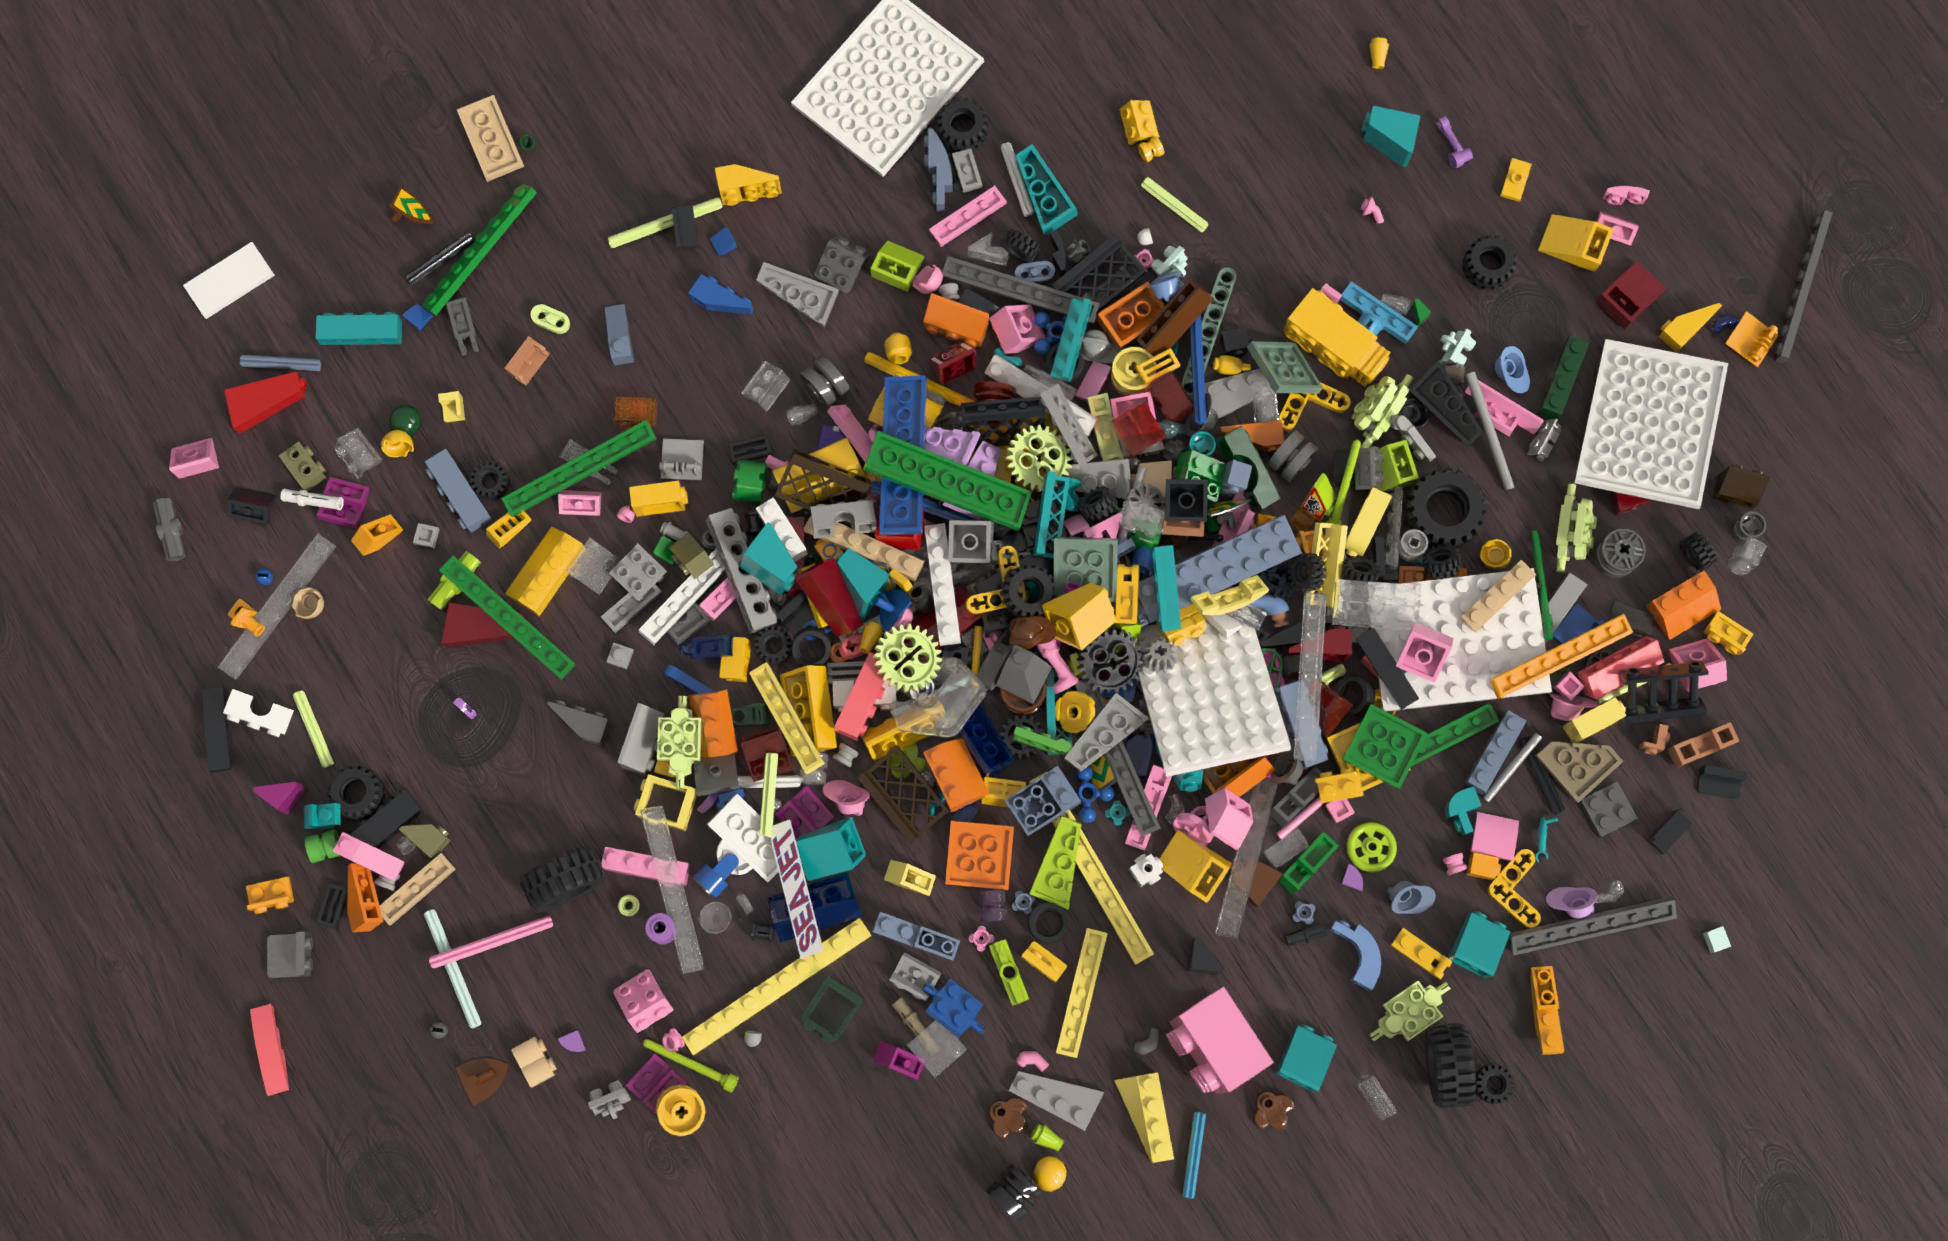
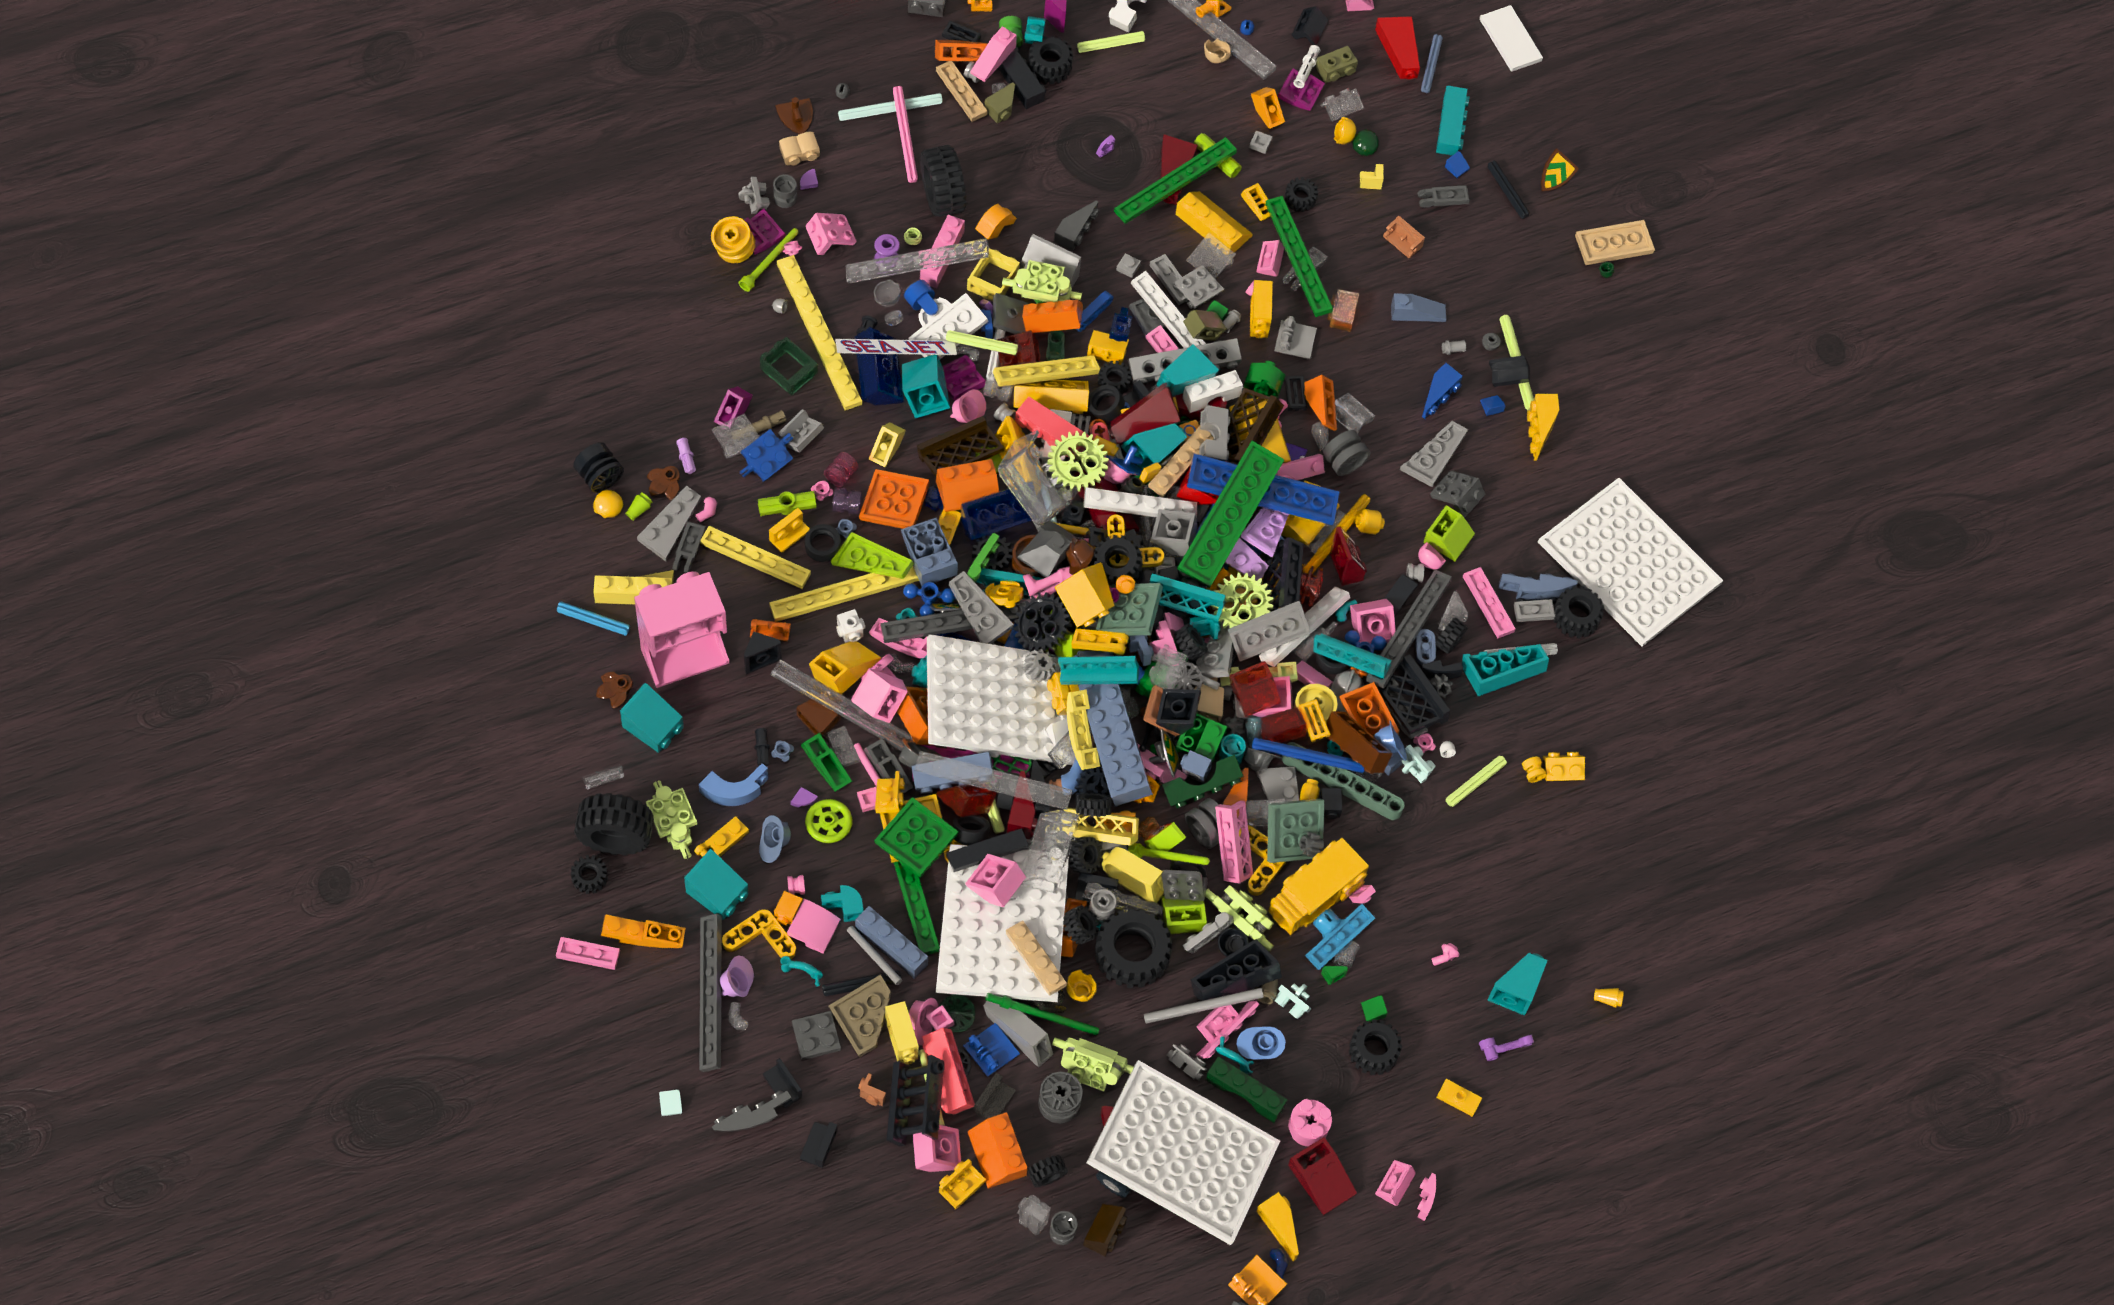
camera: 95 degrees right, 15 degrees down
(458, 490) = (1306, 165): sand blue brick -> none
(476, 252) = (1516, 221): green plate -> none
(551, 319) = (1438, 262): yellowish green plate -> none
(594, 813) = (994, 221): none -> light orange brick
(598, 1065) = (785, 191): none -> dark grey wheel
(644, 258) = (1488, 344): none -> dark grey plate
(659, 291) = (1455, 346): none -> light grey pin
(759, 418) = (1320, 396): none -> orange slope
(915, 936) = (836, 438): sand blue slope -> none
(954, 921) = (841, 468): none -> clear pink wheel
(956, 321) = (1386, 570): orange slope -> none
(970, 1099) = (686, 455): none -> lavender axle
(1059, 576) = (1125, 584): none -> light orange plate
(1082, 1069) = (689, 545): none -> dark grey hinge
(1164, 957) = (772, 629): none -> orange hinge
(1297, 349) = (1311, 844): none -> dark grey gear
(1314, 425) = (1231, 843): none -> bright pink fence
(1444, 270) = (1374, 1008): none -> green slope
(1536, 385) = (1244, 1065): none -> teal piece
(1560, 656) = (967, 1004): light orange tile -> none
(1576, 241) = (1384, 1136): yellow slope -> none
(1581, 1063) = (587, 953): none -> bright pink plate
(1582, 302) = (1310, 1111): none -> bright pink brick
(1703, 745) = (856, 1129): nougat arch -> none
(1718, 856) = (746, 1119): none -> dark grey slope

